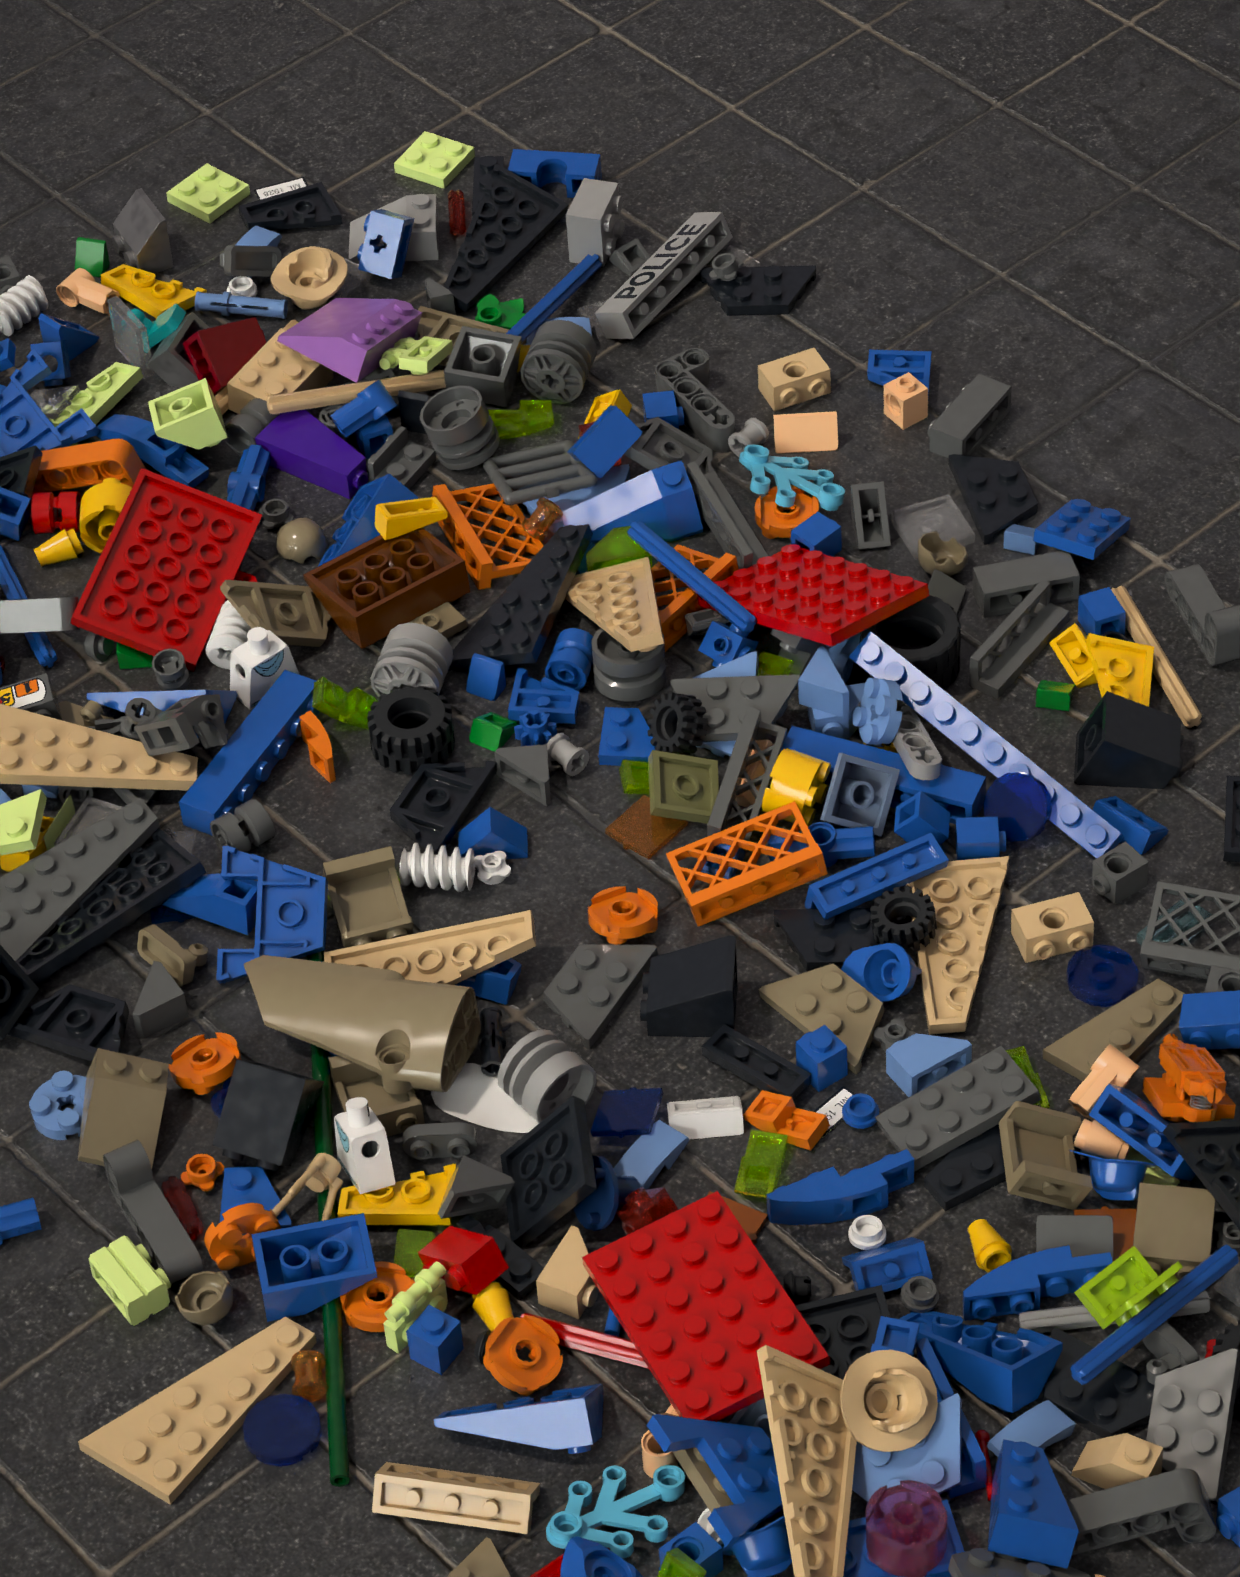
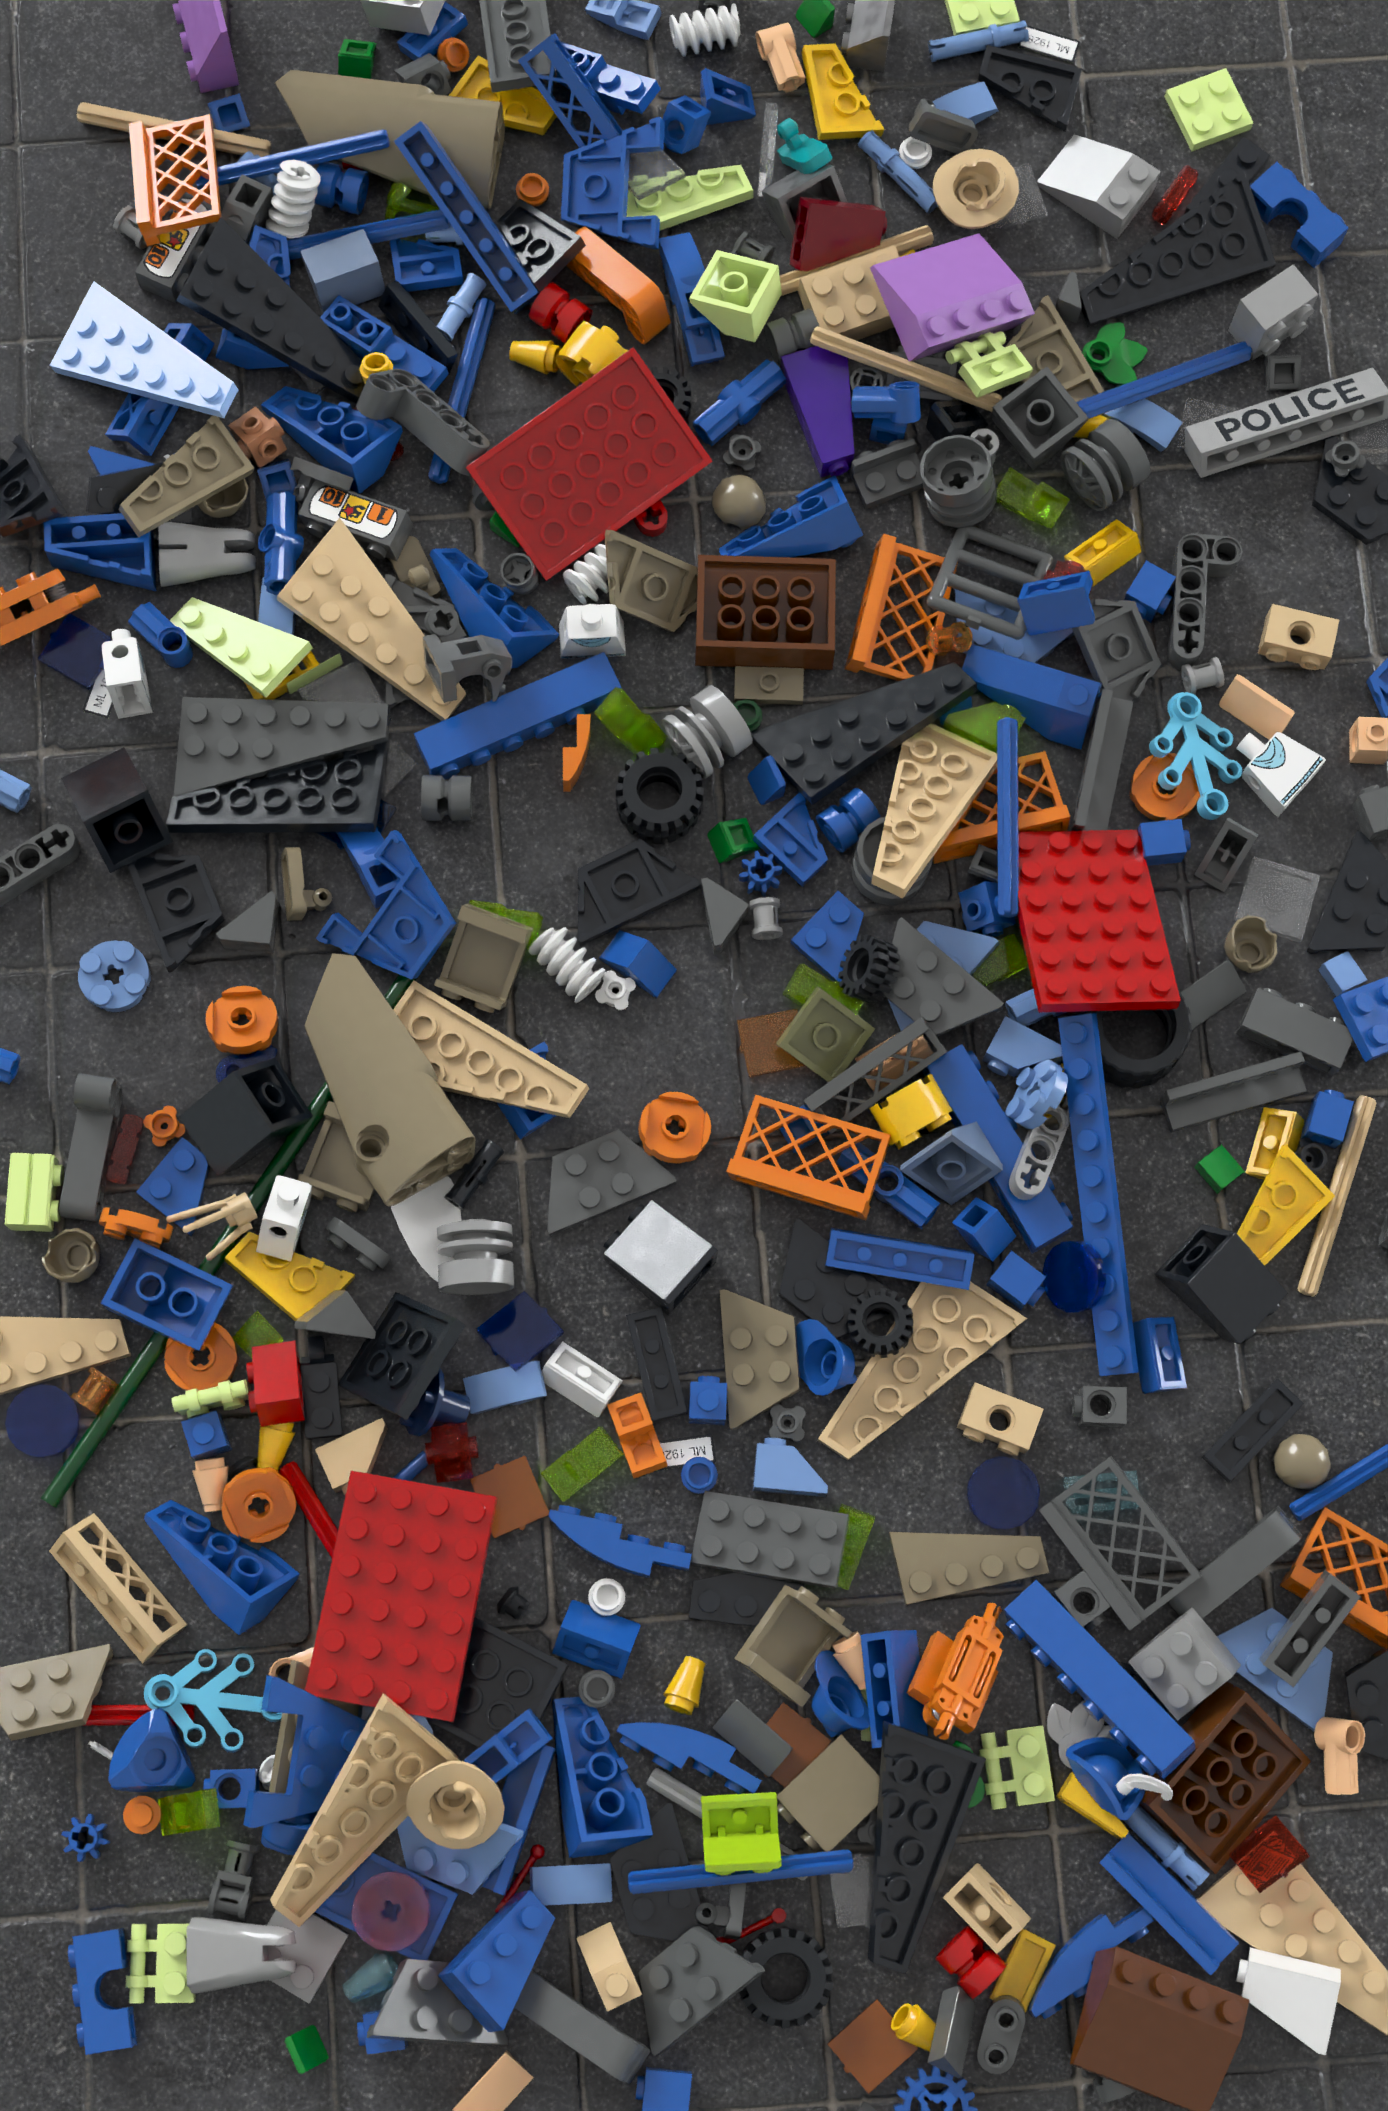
camera: 30 degrees right, 30 degrees up
(121, 1104) = (138, 1027): dark tan slope -> none
(228, 210) = (978, 40): none -> medium blue pin
(396, 232) = (1068, 200): brick -> none
(405, 516) = (829, 569): yellow slope -> none
(468, 1370) = (211, 1478): none -> light nougat cone
(822, 686) = (1013, 1029): medium blue slope -> none
(856, 453) = (1278, 769): none -> white torso
(1110, 1068) = (910, 1608): light nougat piece -> none

